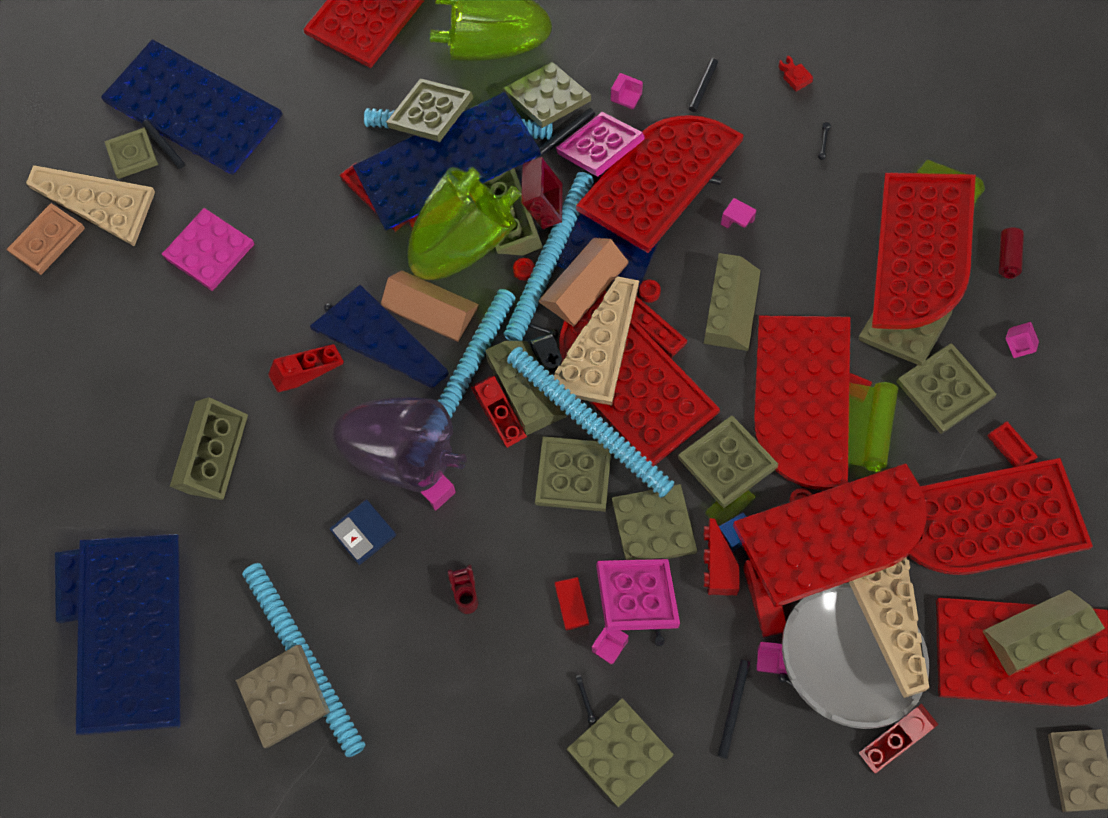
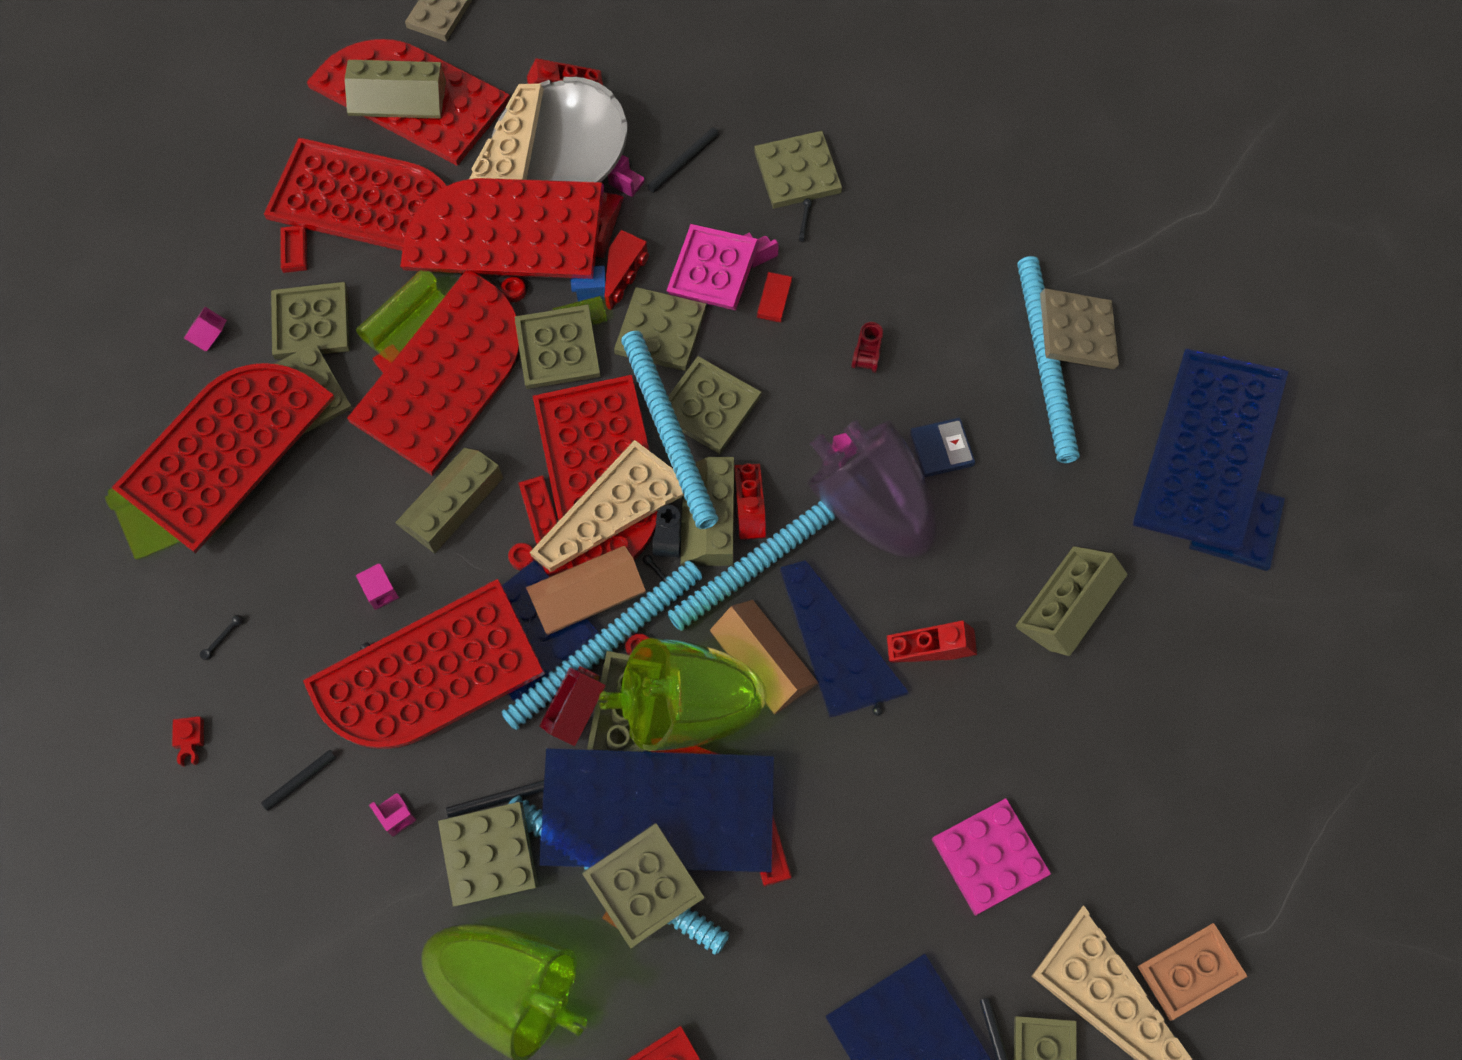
camera: 155 degrees left, 0 degrees up
(600, 143) = (468, 747): dark pink plate -> none
(1011, 252) = (142, 413): dark red brick -> none

